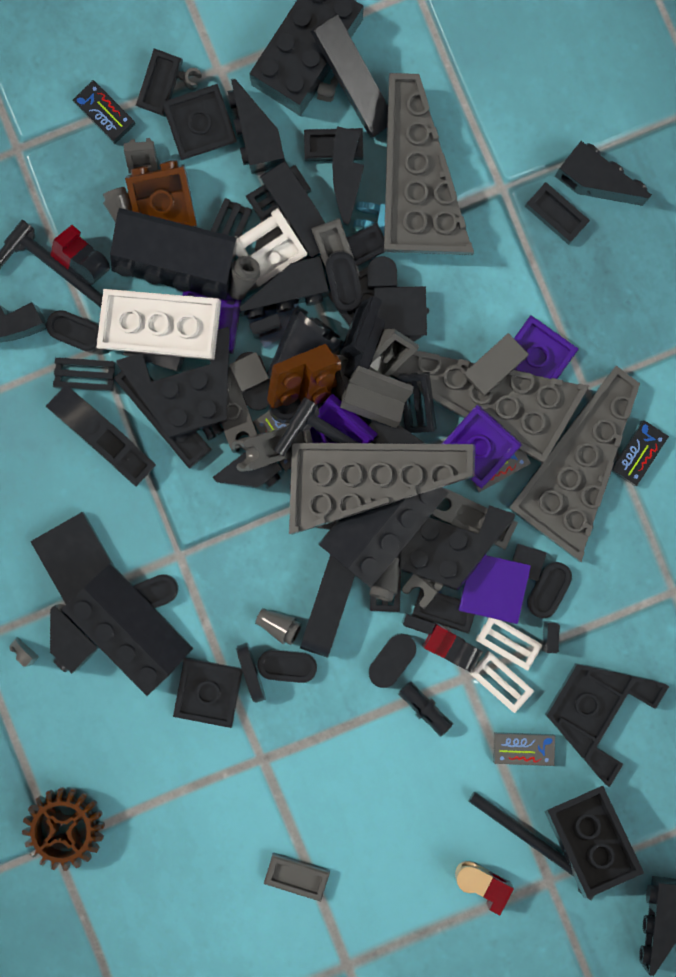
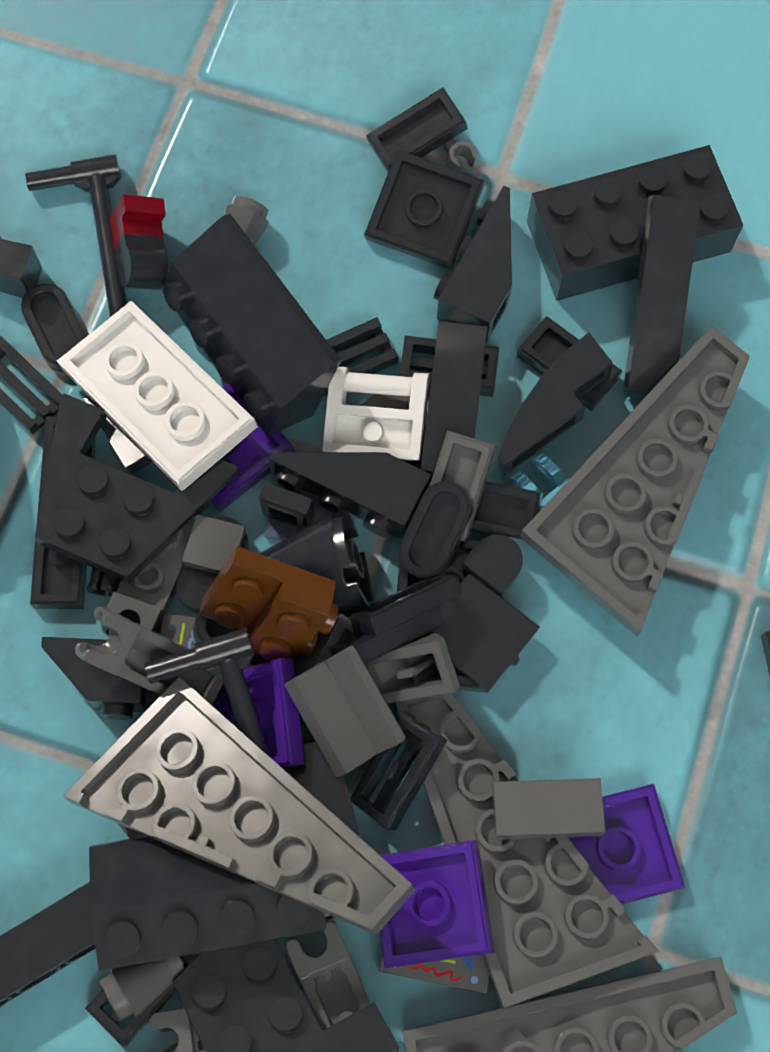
camera: 40 degrees right, 15 degrees down
(104, 112) = (323, 116): black tile -> none
(140, 154) = (318, 193): dark grey tile -> none
(162, 192) = (306, 250): reddish brown plate -> none
(243, 276) = (313, 418): dark grey cone -> none
(327, 91) = (614, 295): dark grey hand -> none

